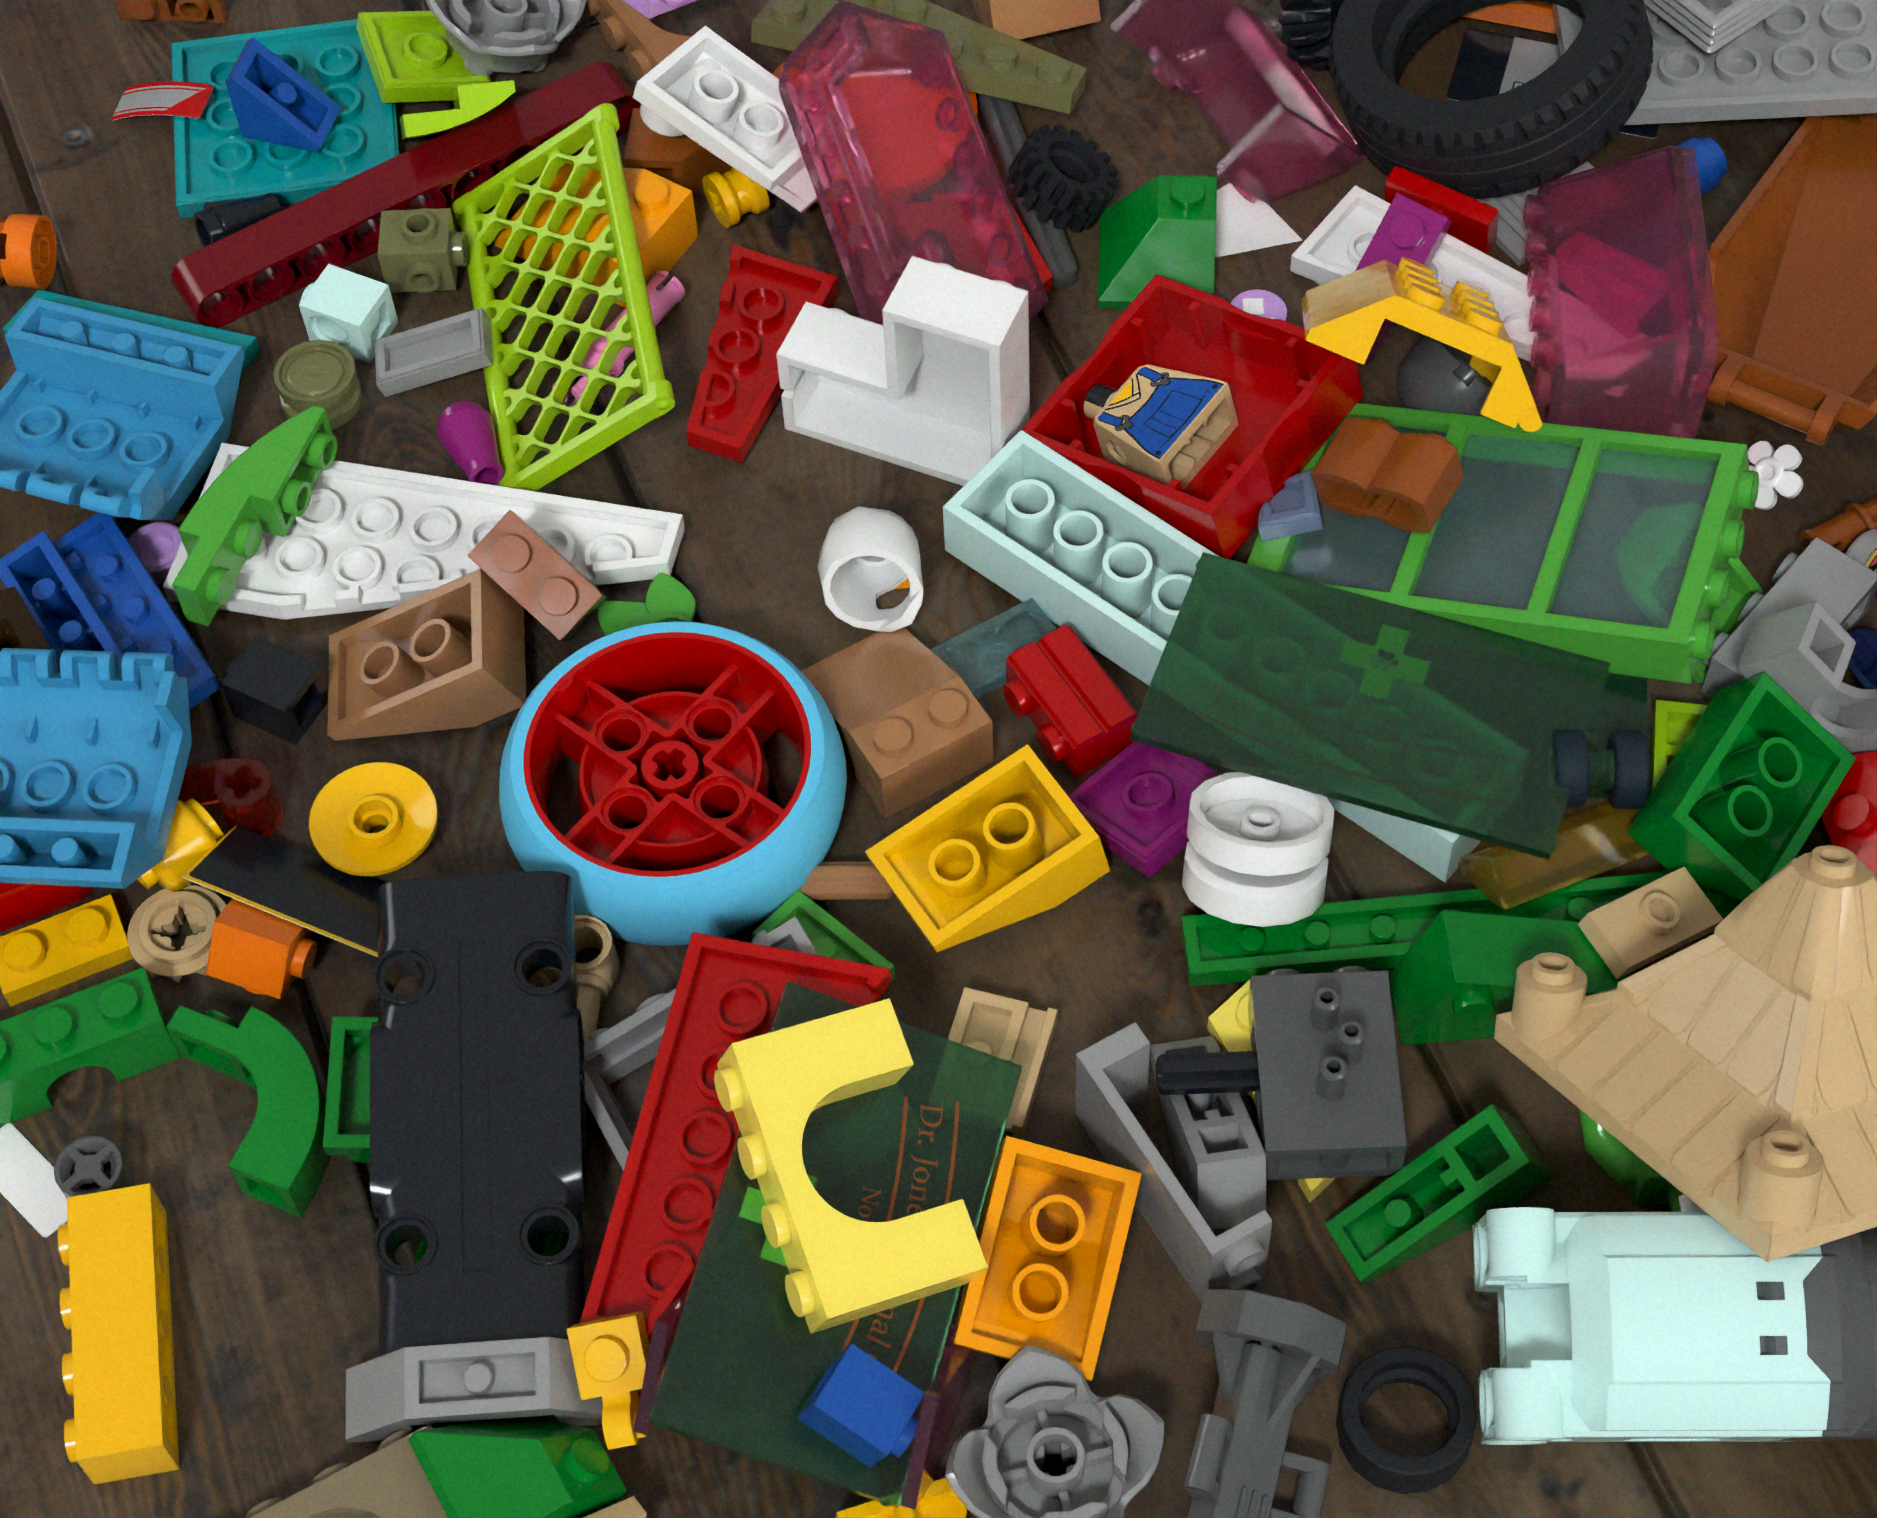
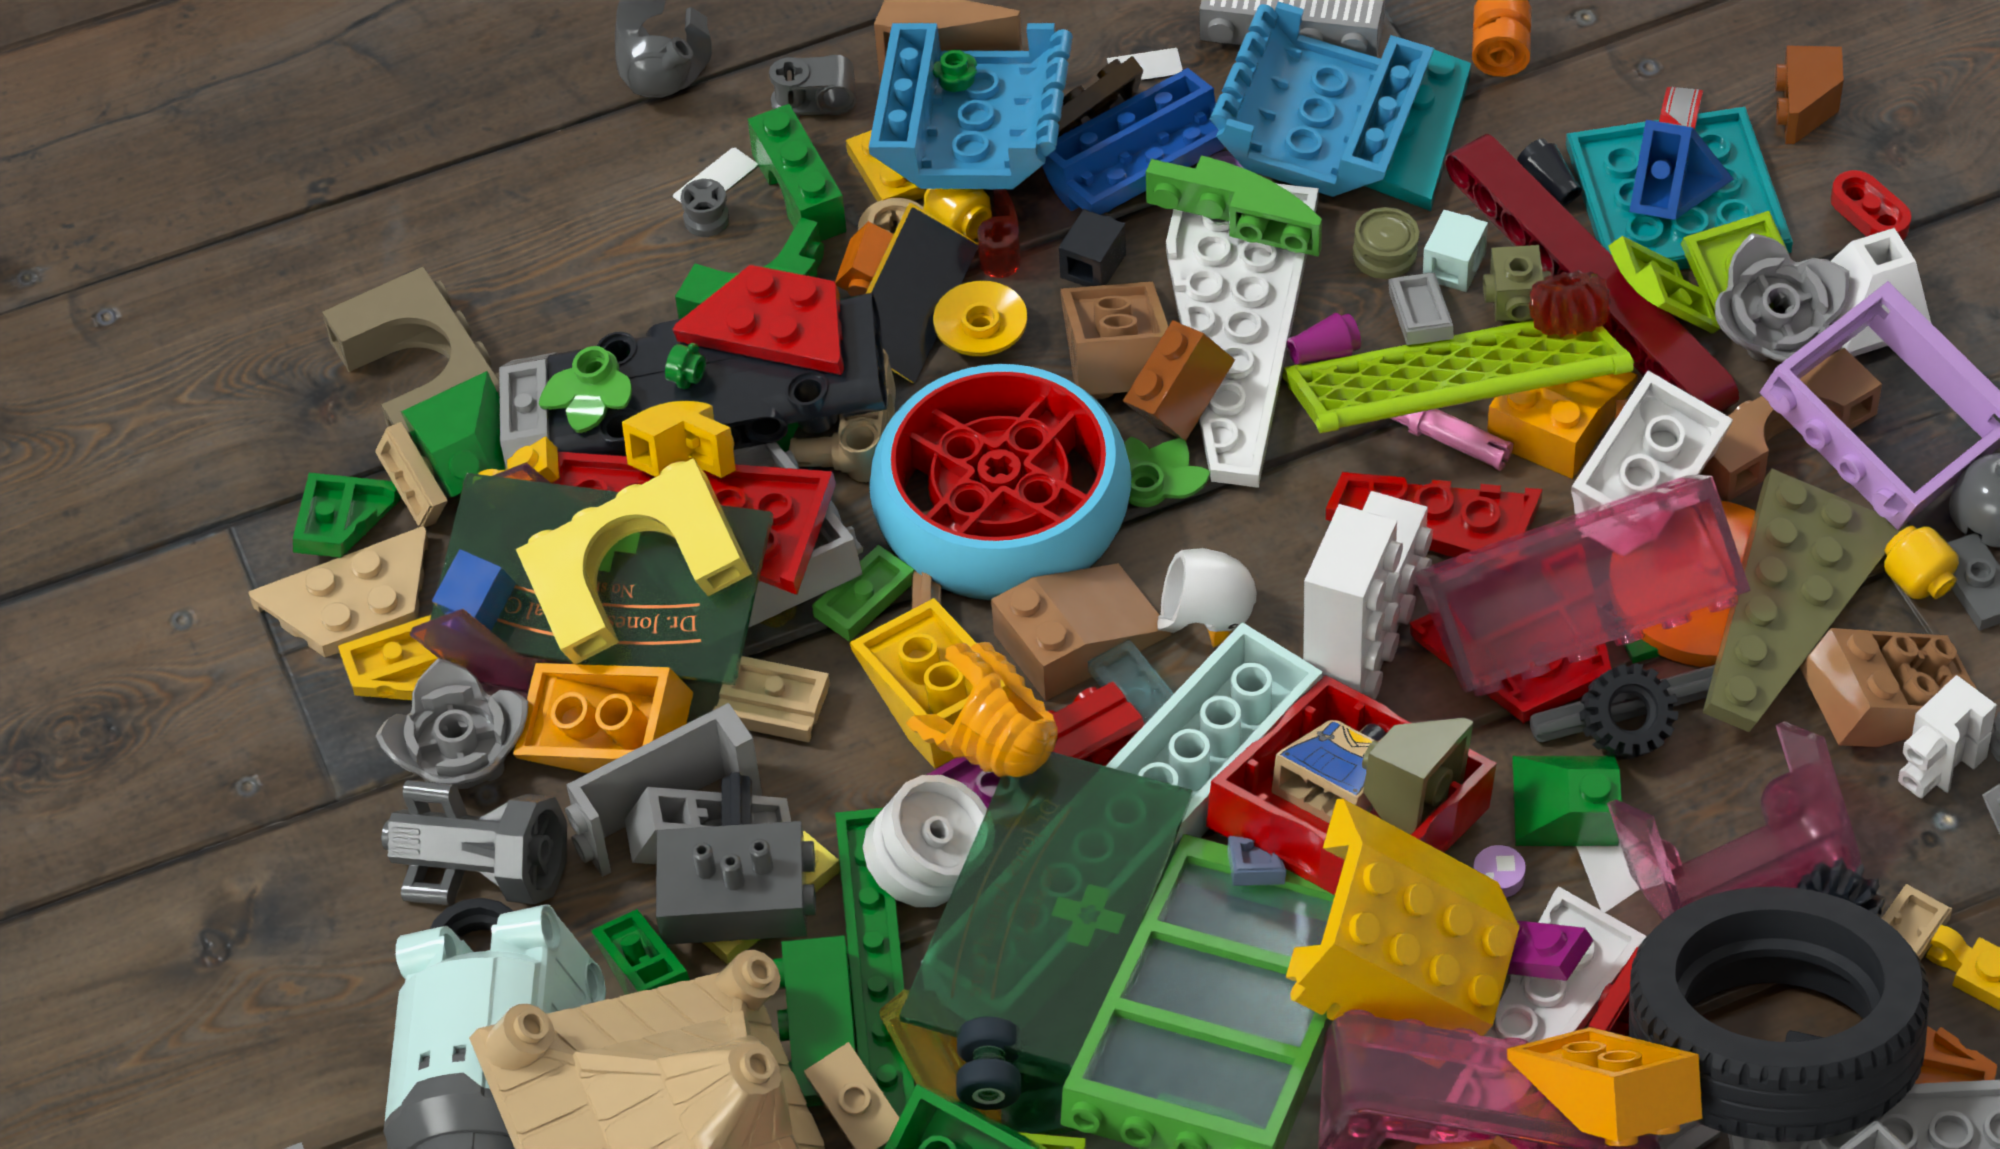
camera: 90 degrees right, 5 degrees down
(119, 1335) = (591, 235): yellow brick -> none
(416, 1004) = (771, 318): none -> red wing
(479, 1123) = (685, 365): none -> green plate
(483, 182) = (1569, 303): none -> clear red gear
(497, 1276) = (588, 389): none -> bright green plate
(603, 1124) = (677, 434): none -> yellow brick
(1143, 723) = (992, 730): none -> light orange hair
(1200, 322) = (1414, 769): none -> olive slope
(1388, 474) = (1264, 910): dark orange brick -> none
(1618, 159) = (1614, 1083): none -> light orange slope

